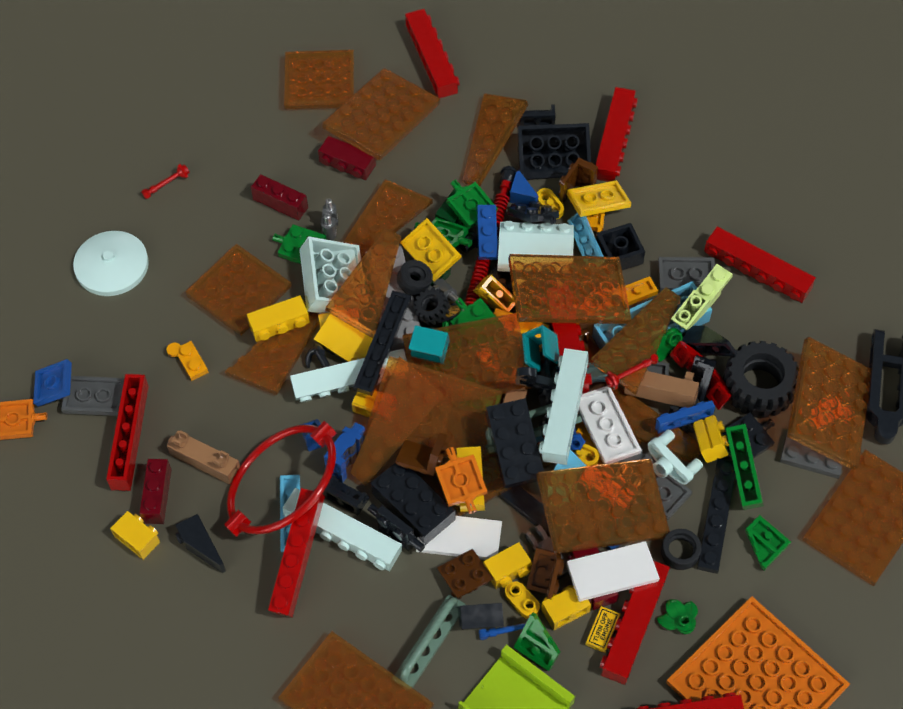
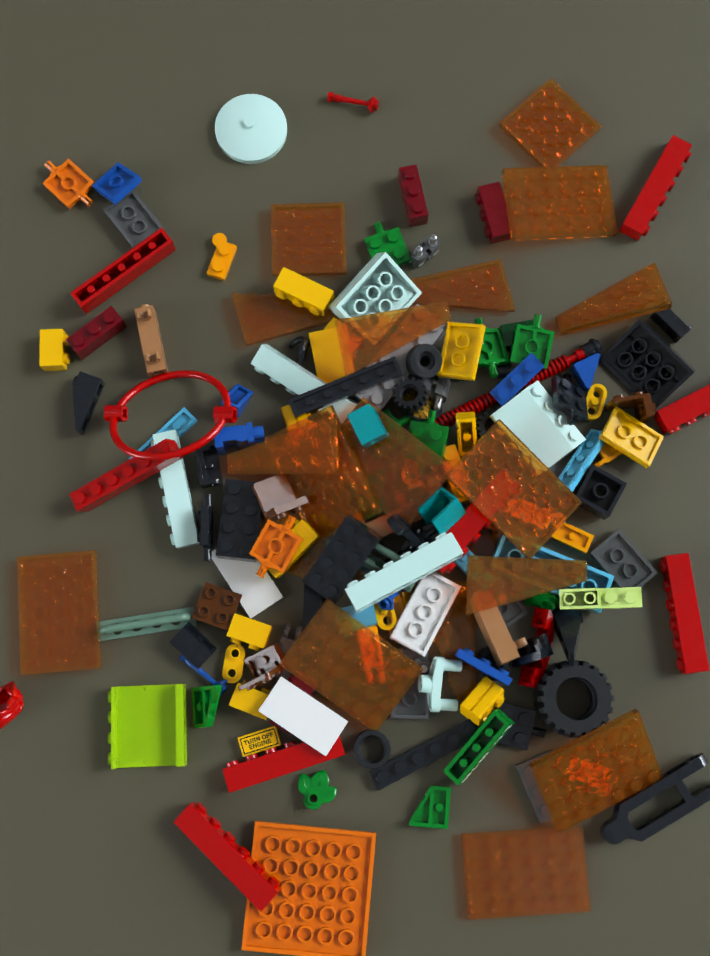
camera: 45 degrees right, 20 degrees up
(613, 380) = (462, 589): red piece -> none

